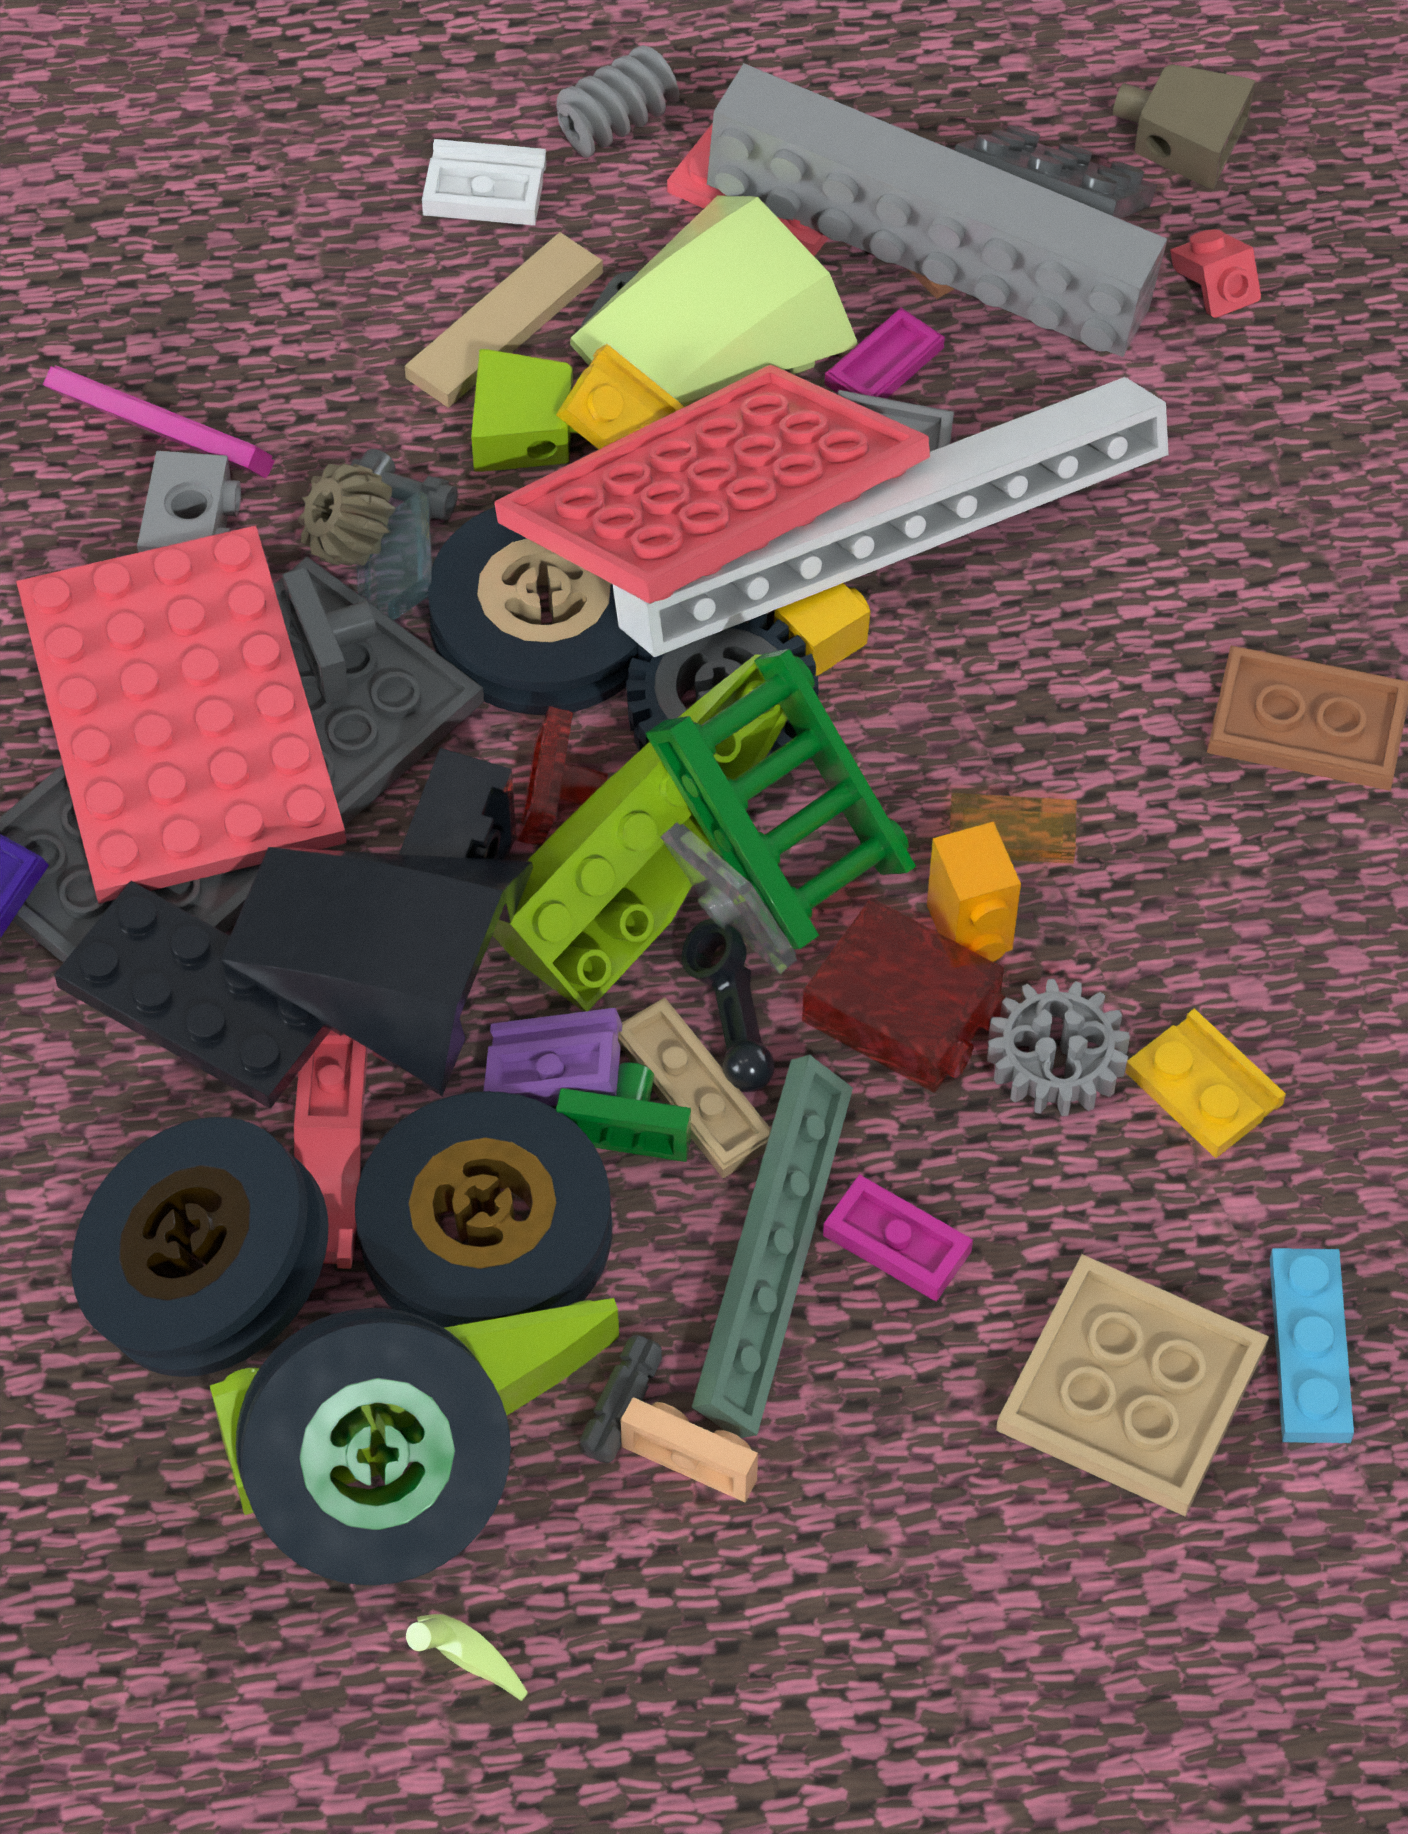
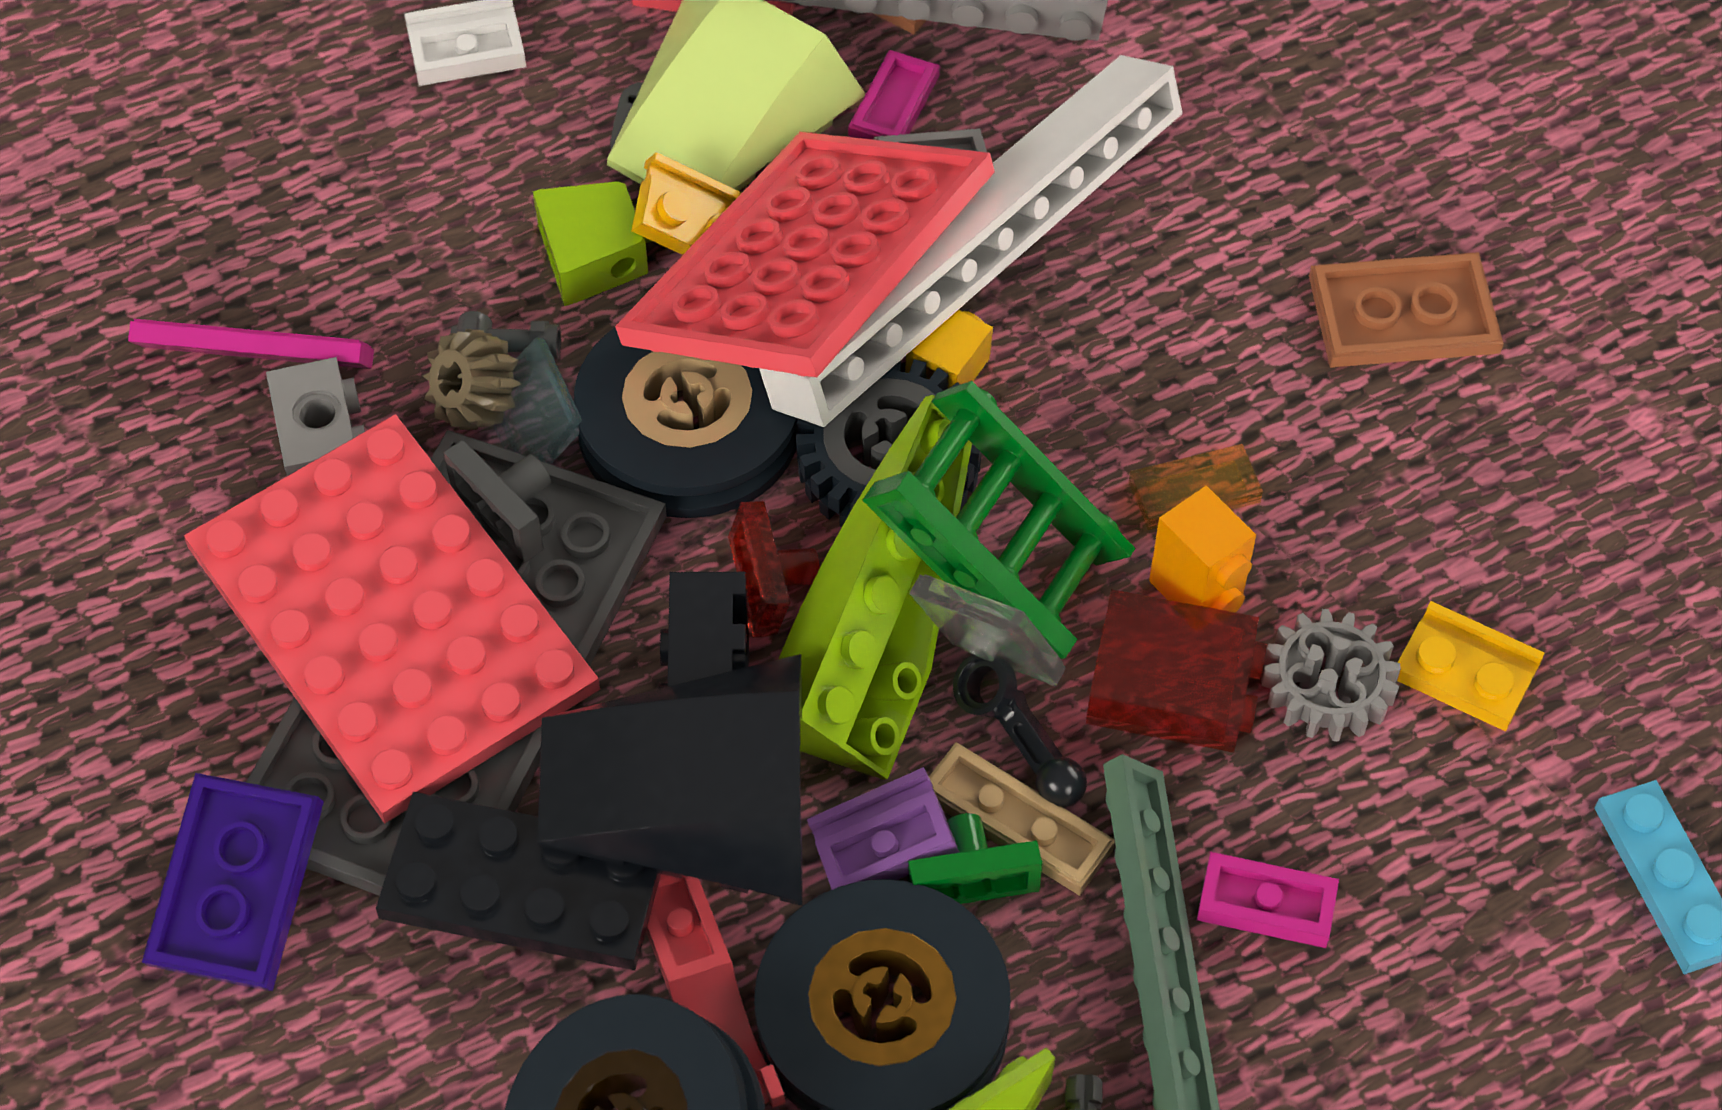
camera: 20 degrees left, 0 degrees up
(504, 317) = (533, 159): tan tile -> none
(1132, 1384) = (1537, 967): tan plate -> none

